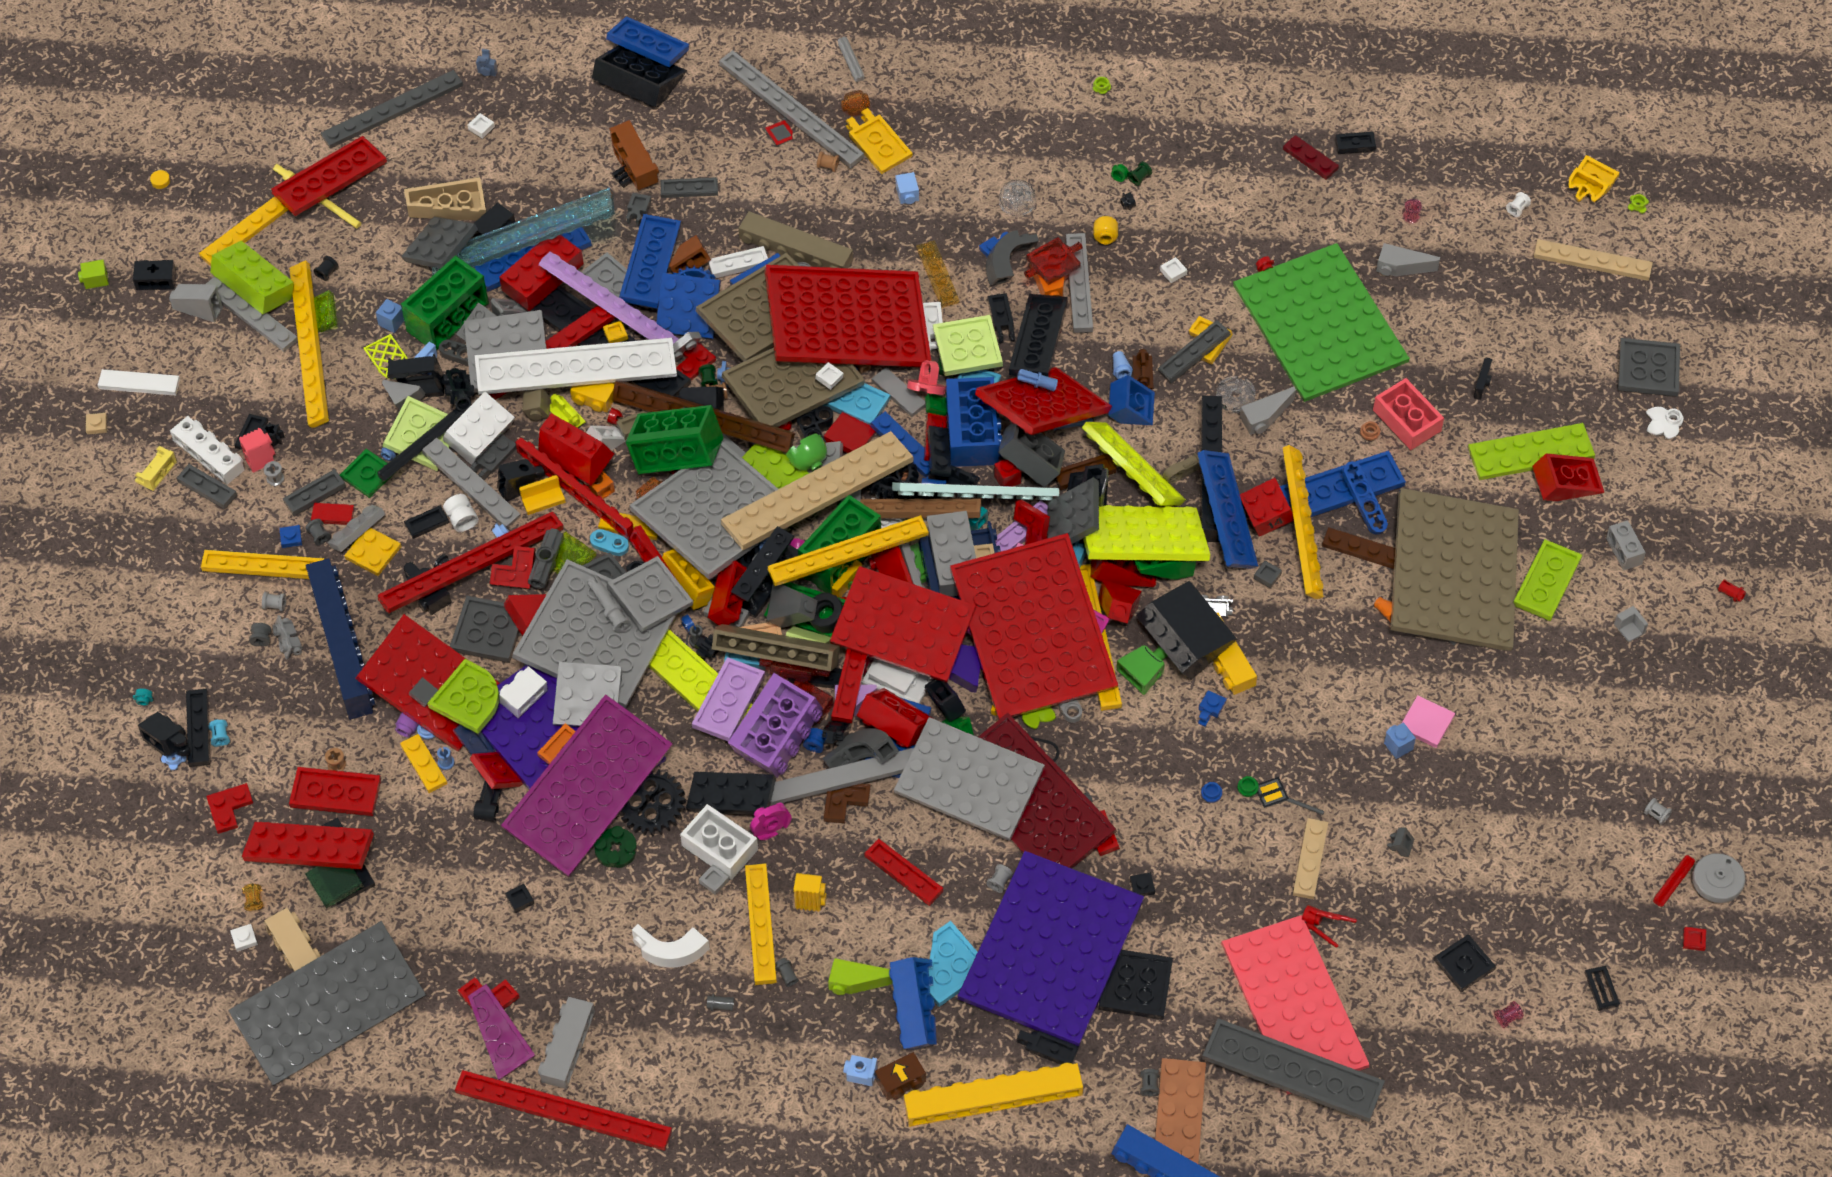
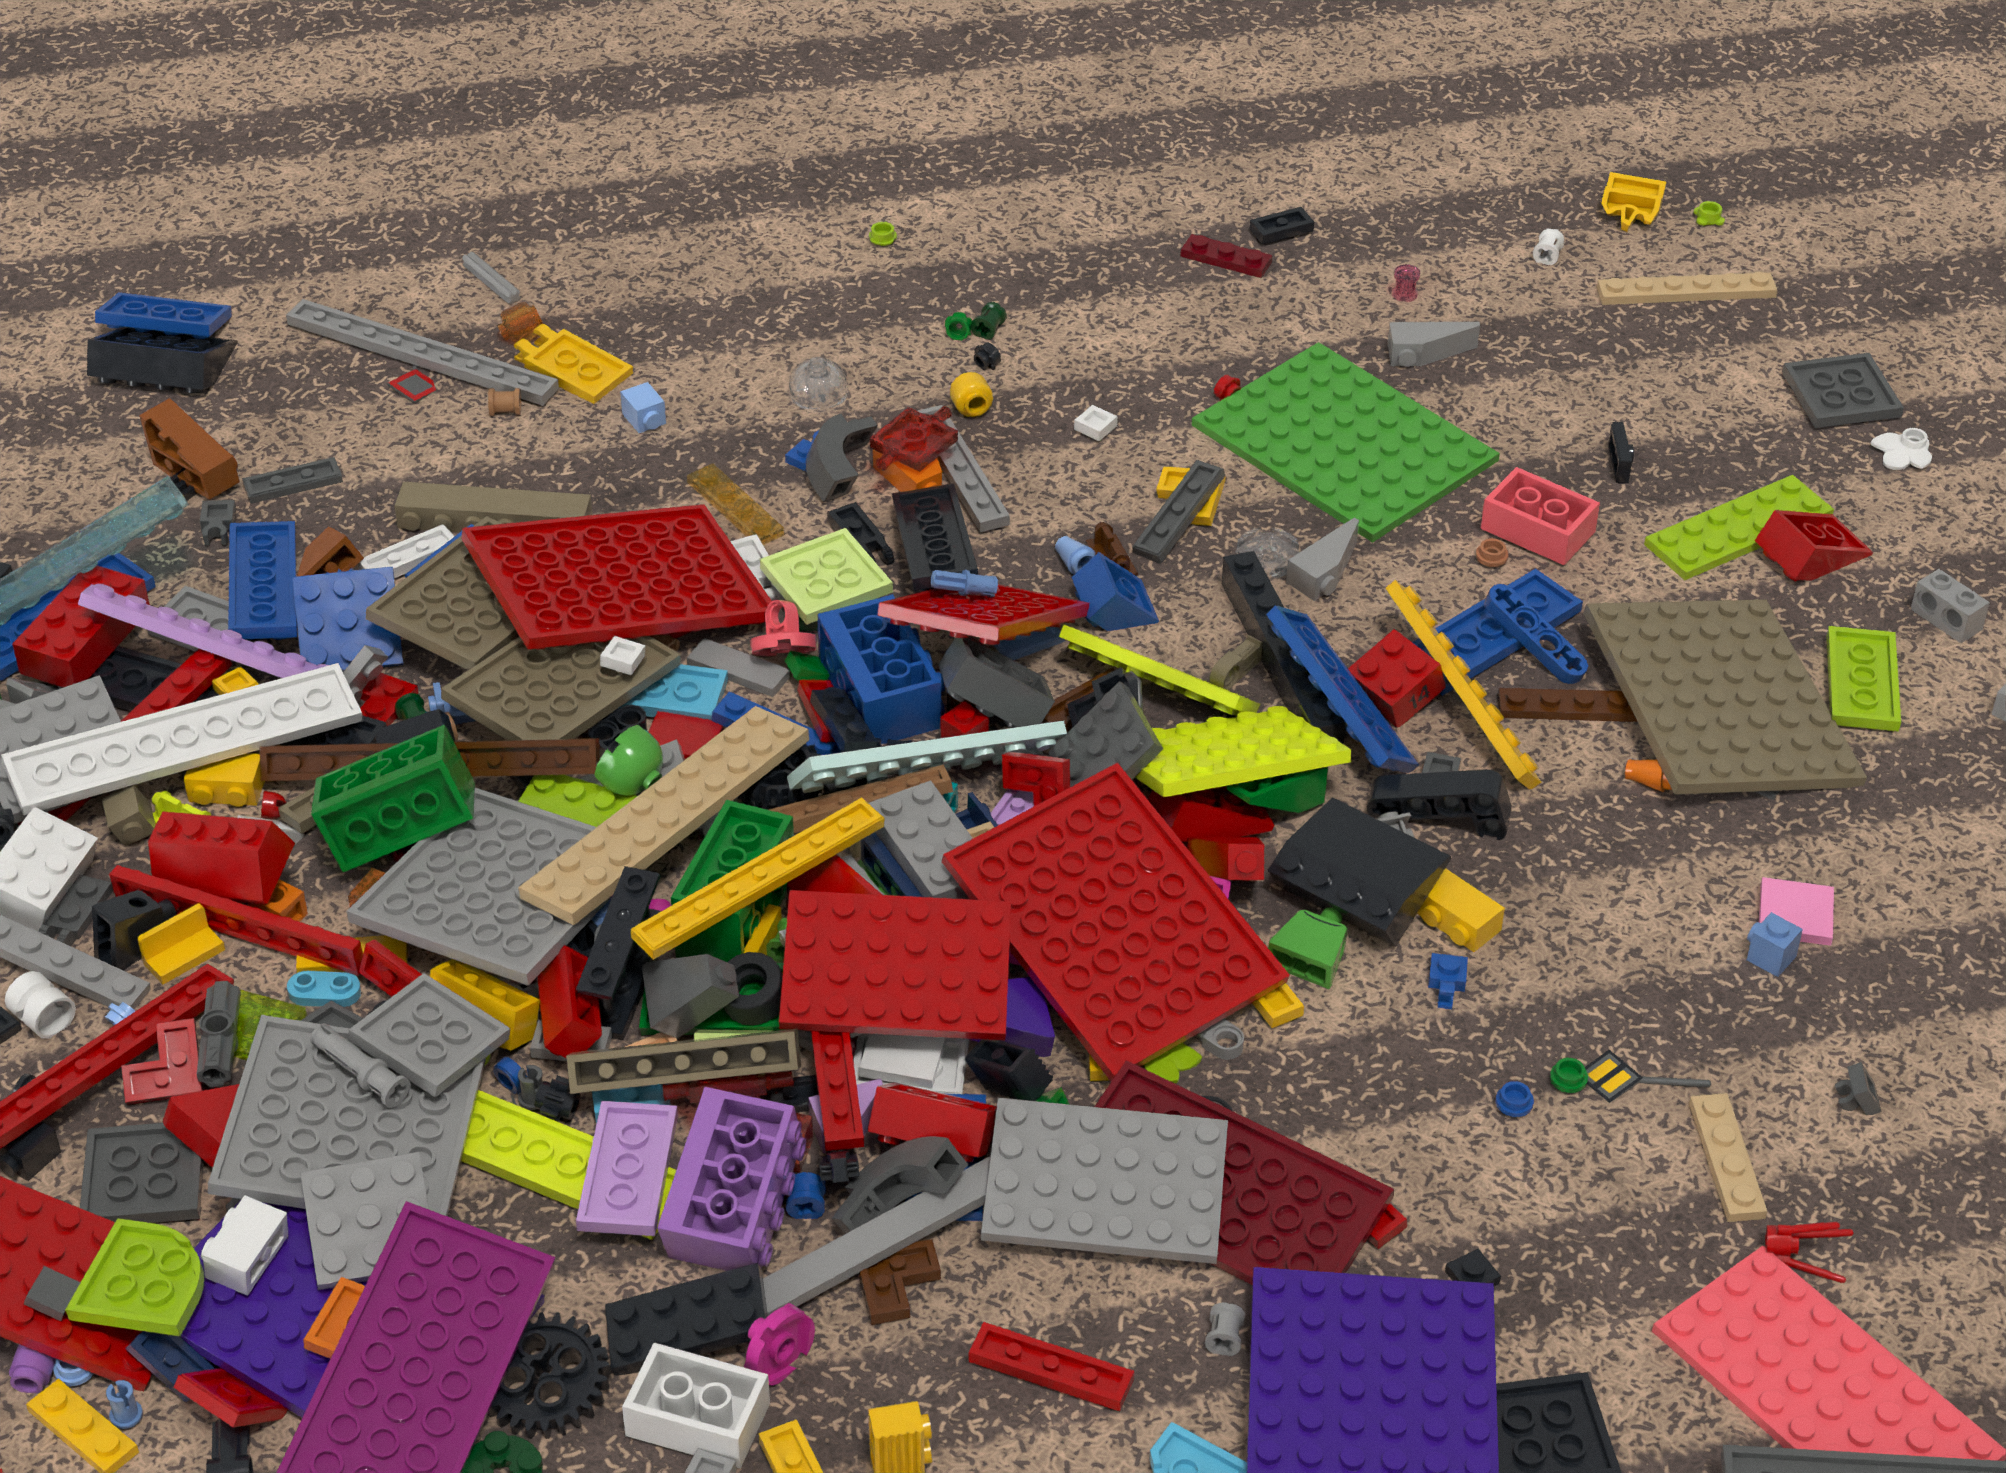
camera: 20 degrees left, 15 degrees down
(1258, 594) = (1446, 795): none -> black beam

